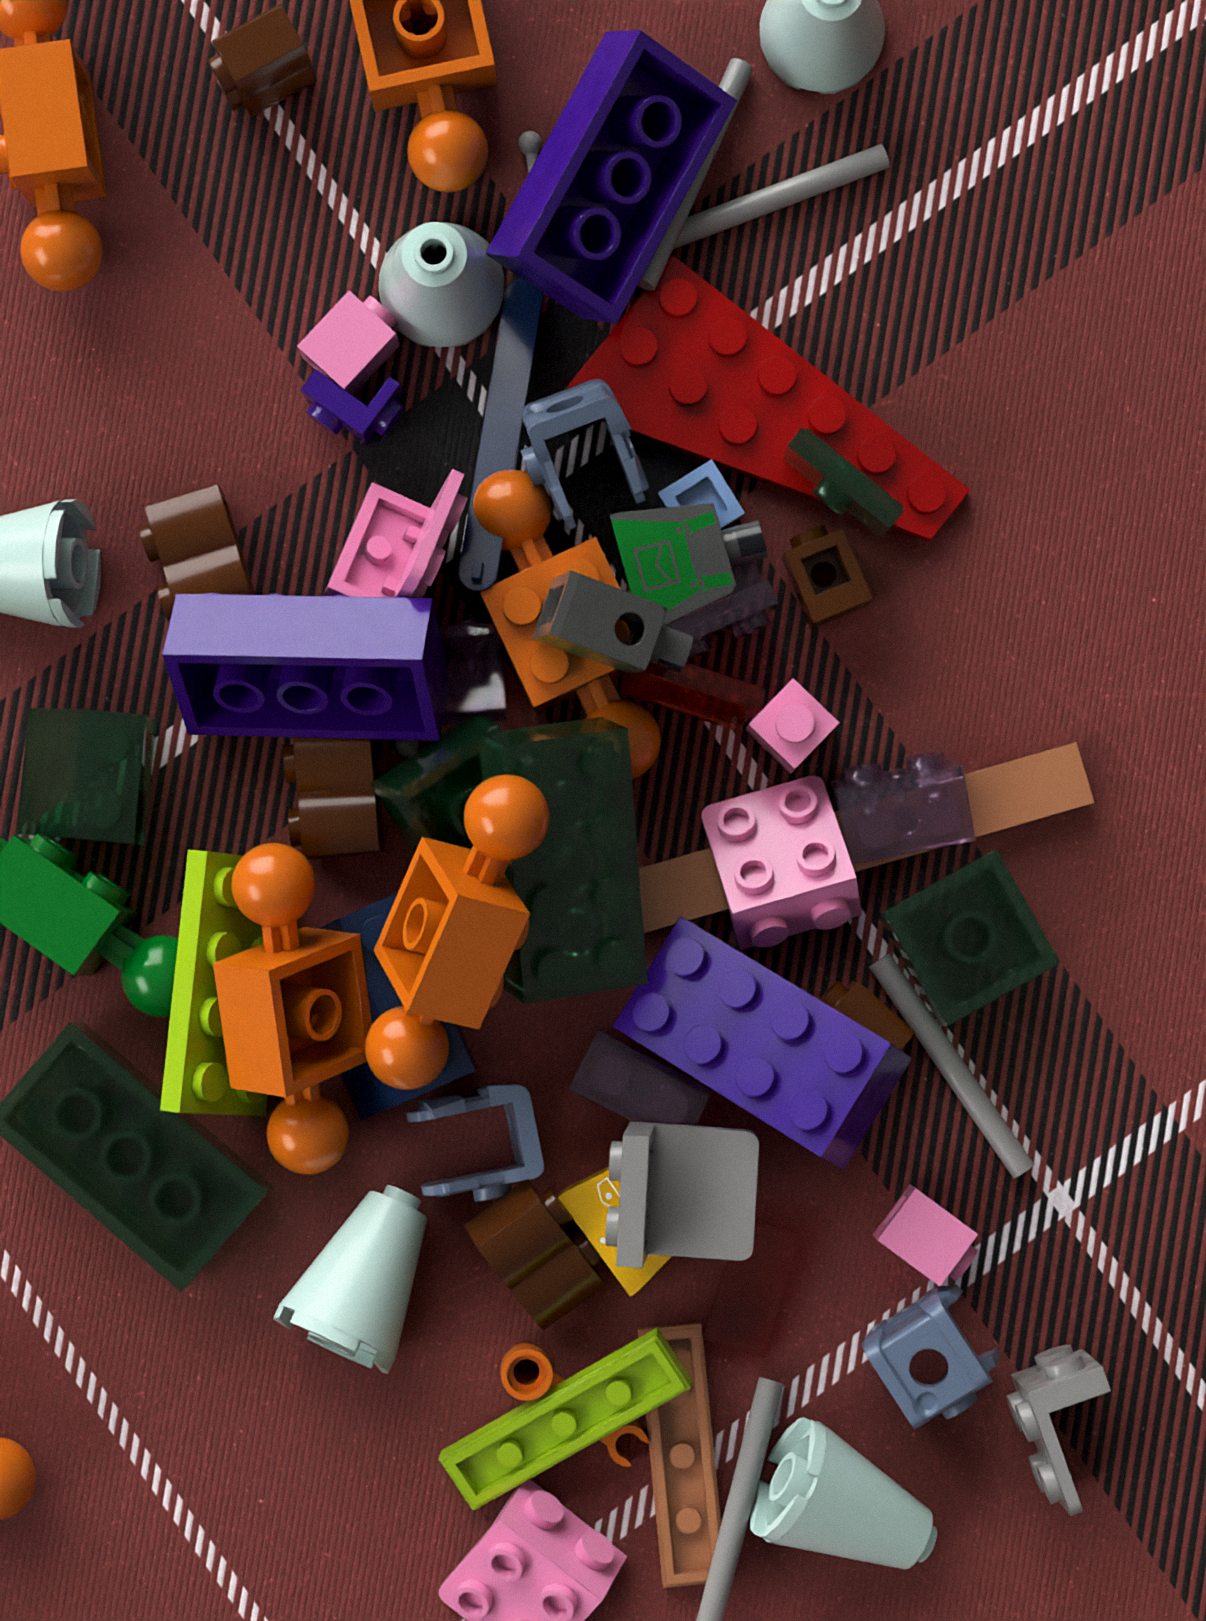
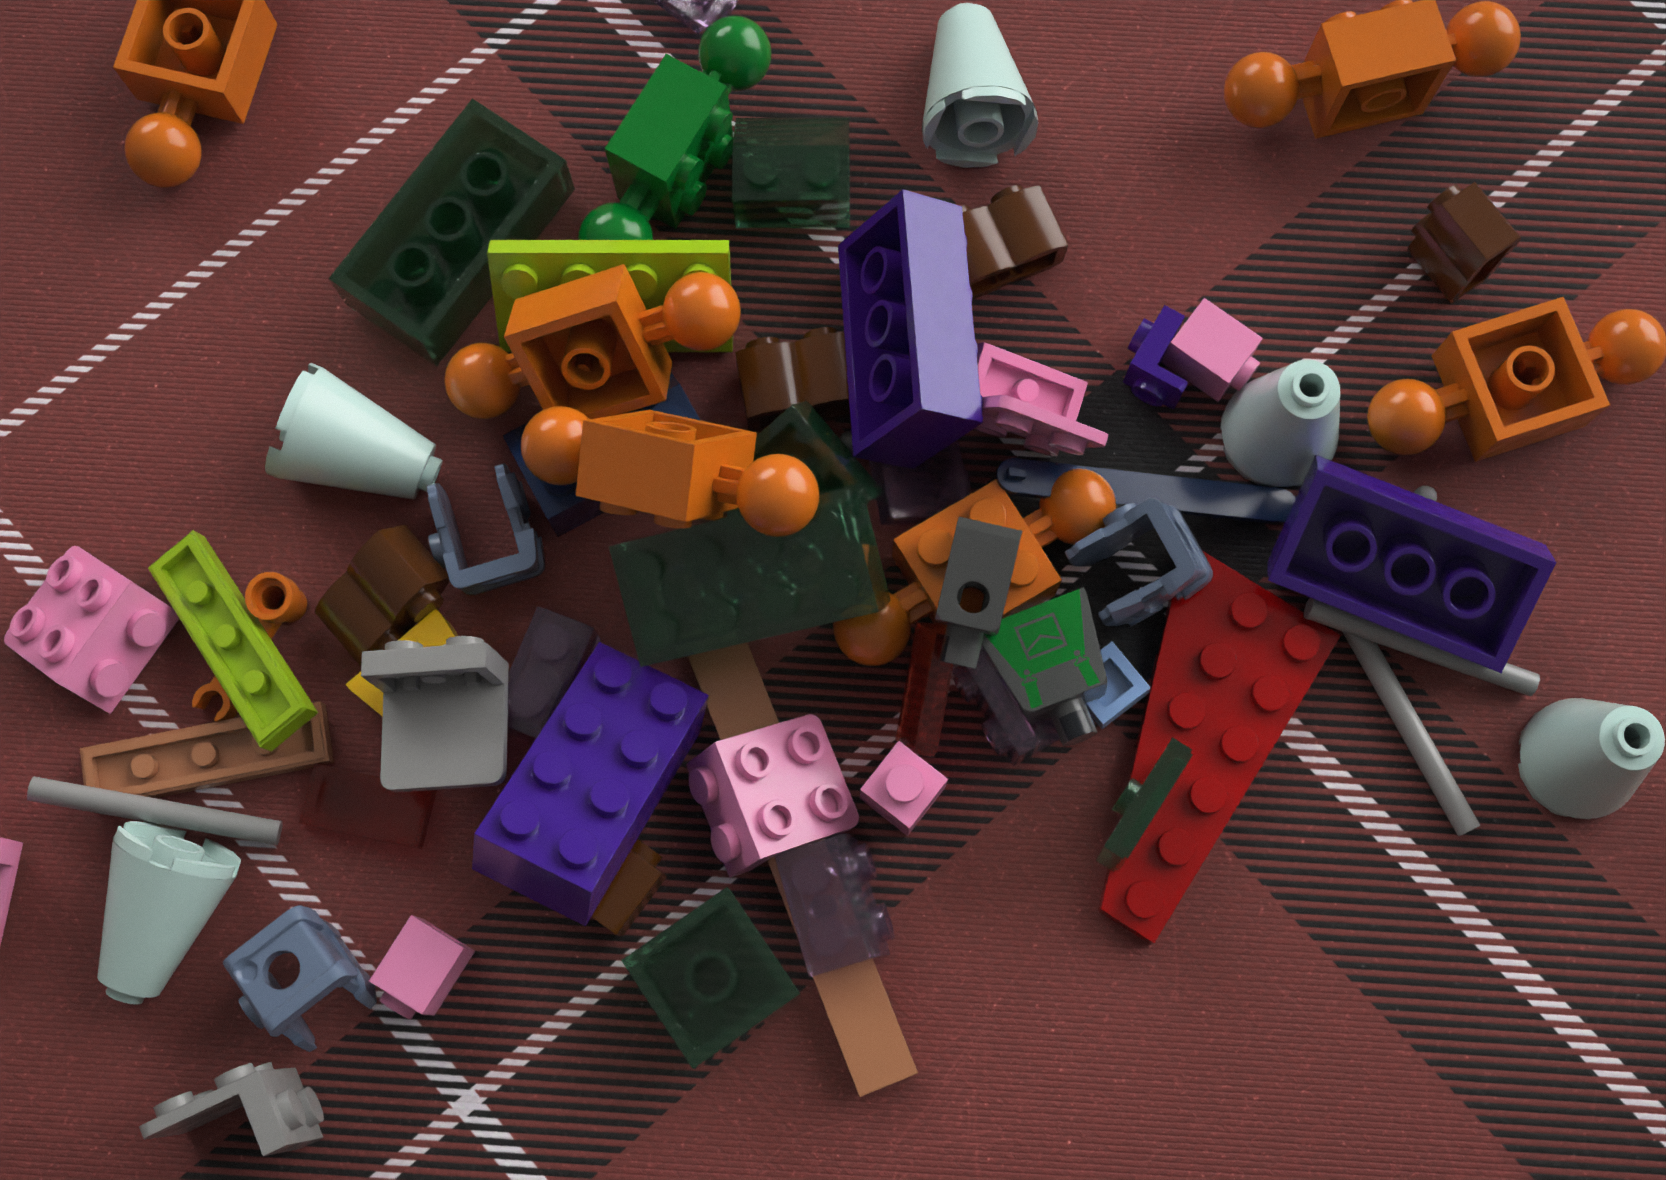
camera: 85 degrees right, 10 degrees down
(845, 594) = (1025, 812): reddish brown brick -> none
(951, 1066) = (586, 982): light grey bar -> none

